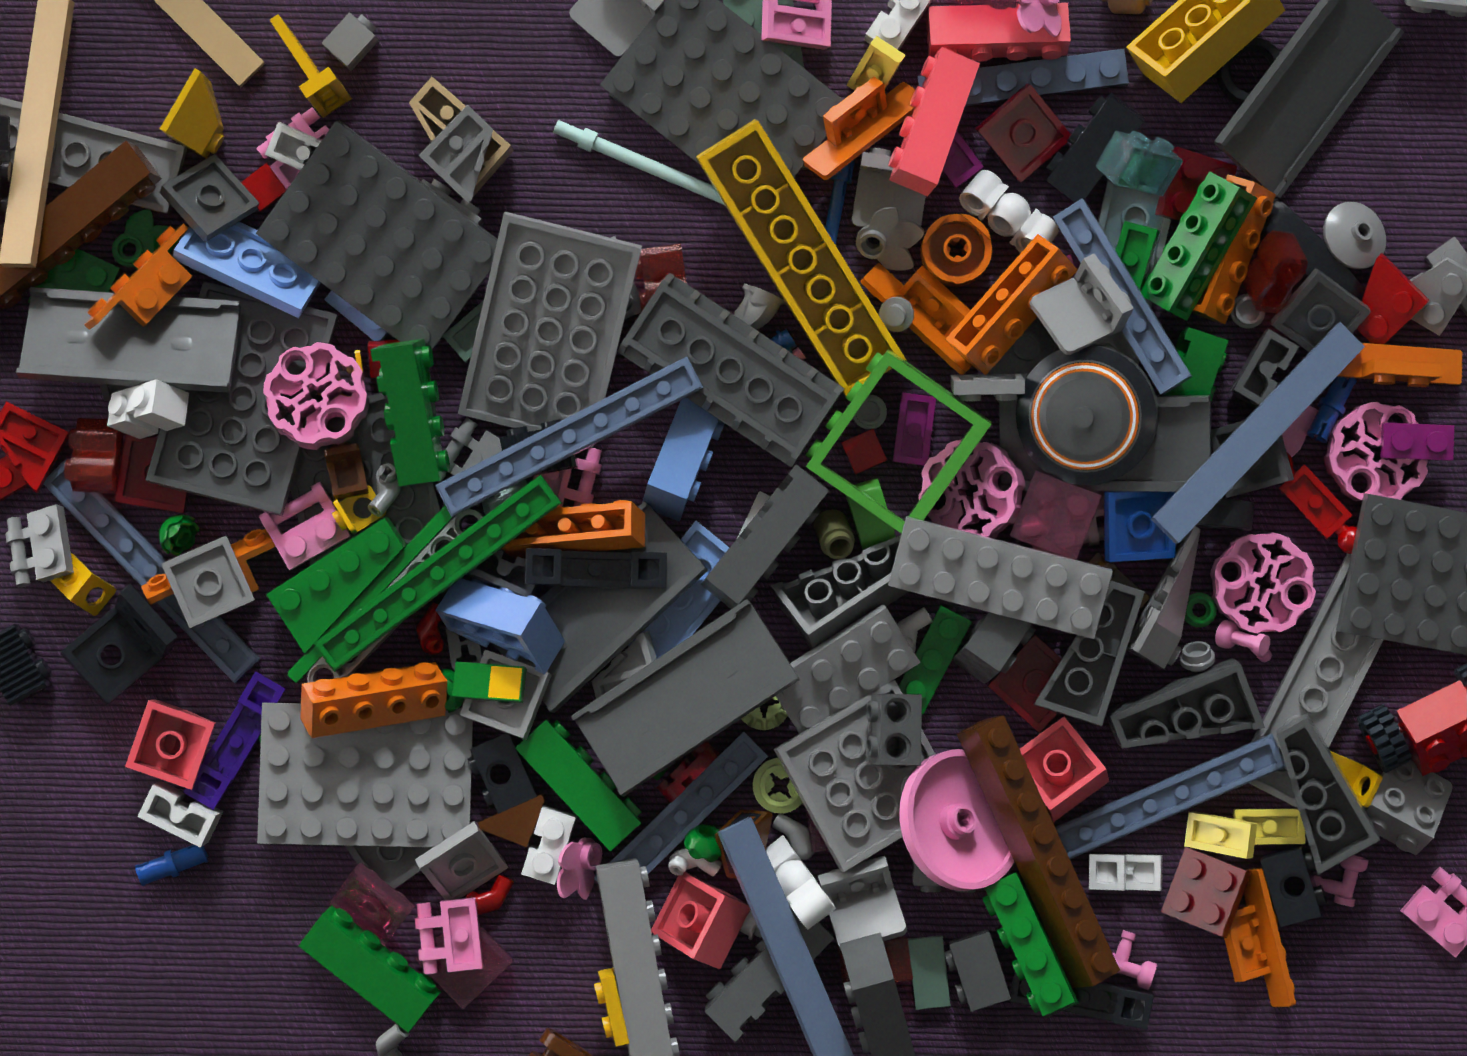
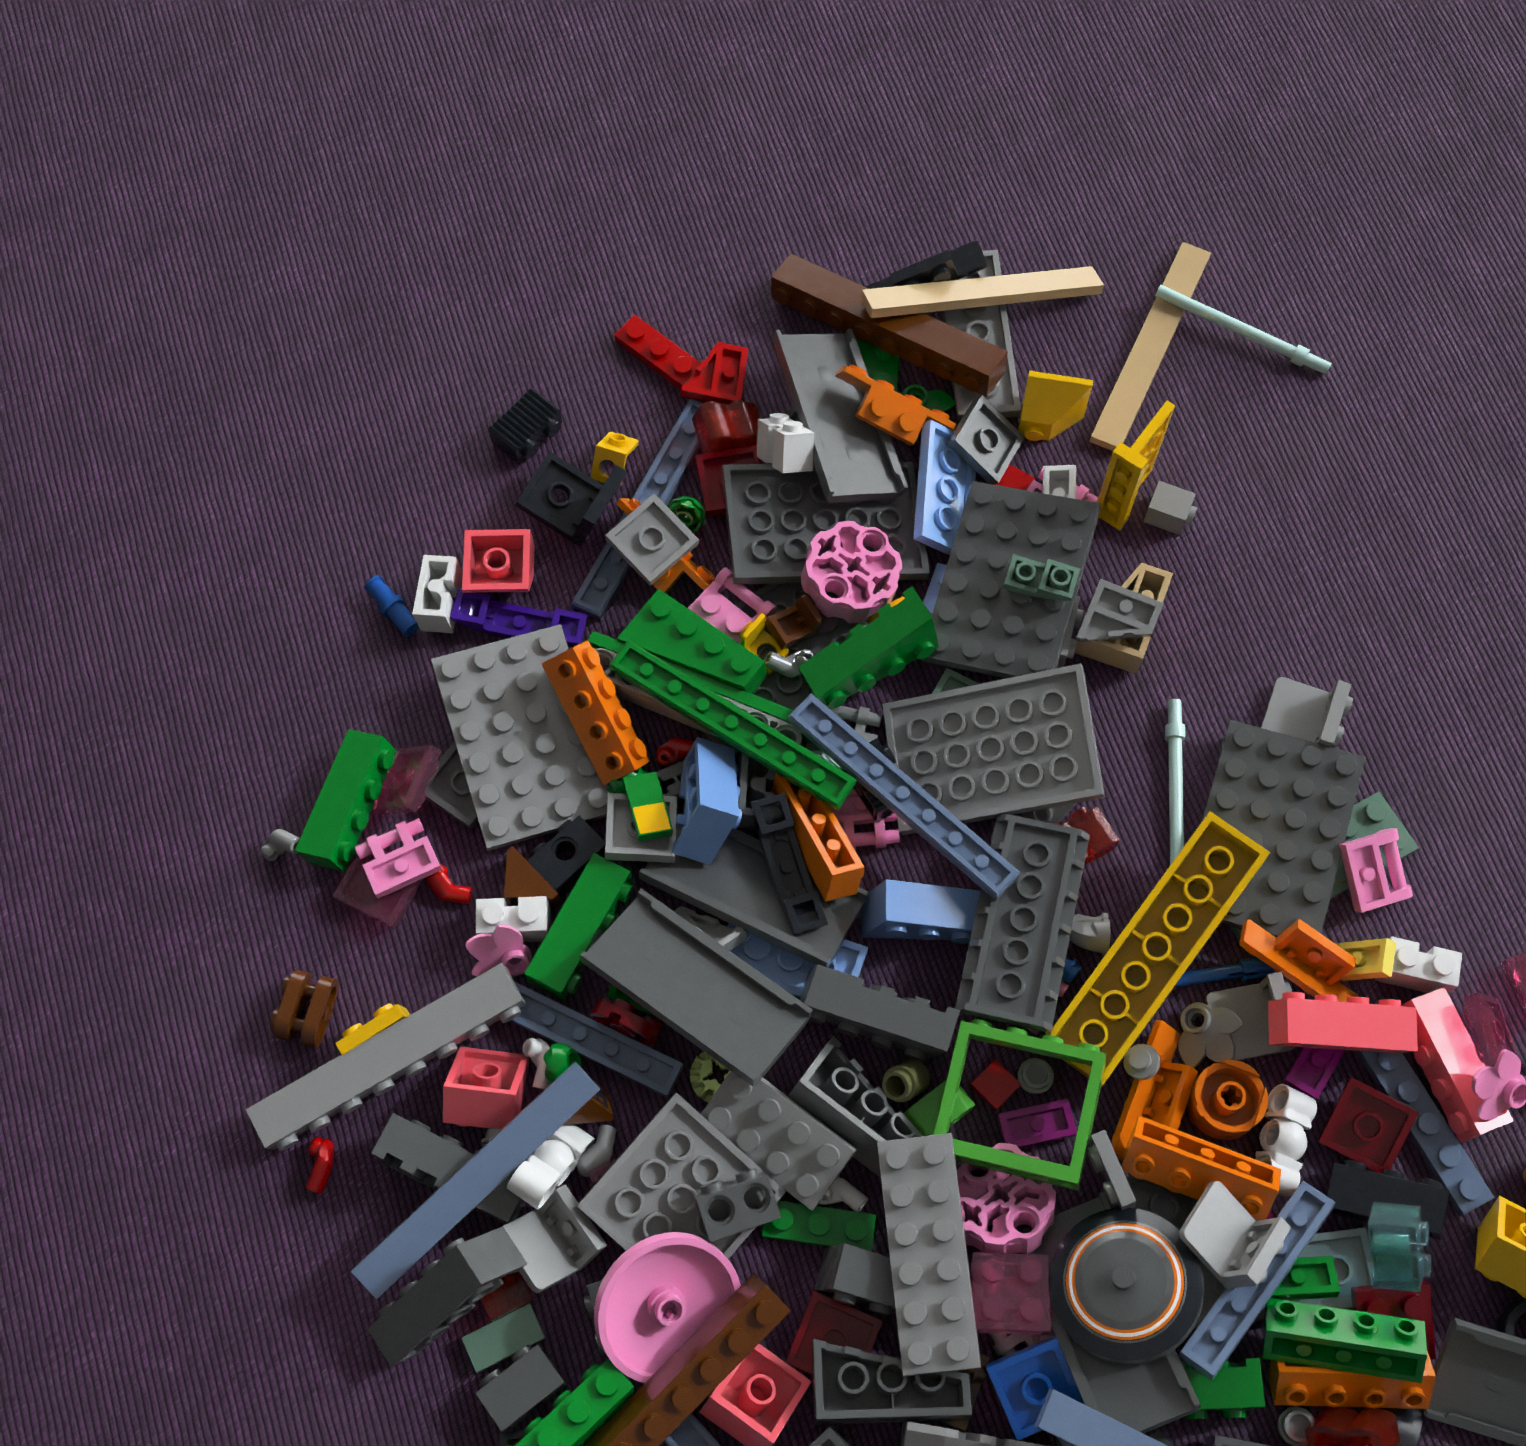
camera: 70 degrees right, 20 degrees down
(49, 546) = (637, 418): light grey plate -> none
(397, 214) = (1041, 580): none -> sand green slope
(461, 863) = (470, 845): light grey plate -> none
(762, 786) = (637, 1103): yellowish green gear -> none

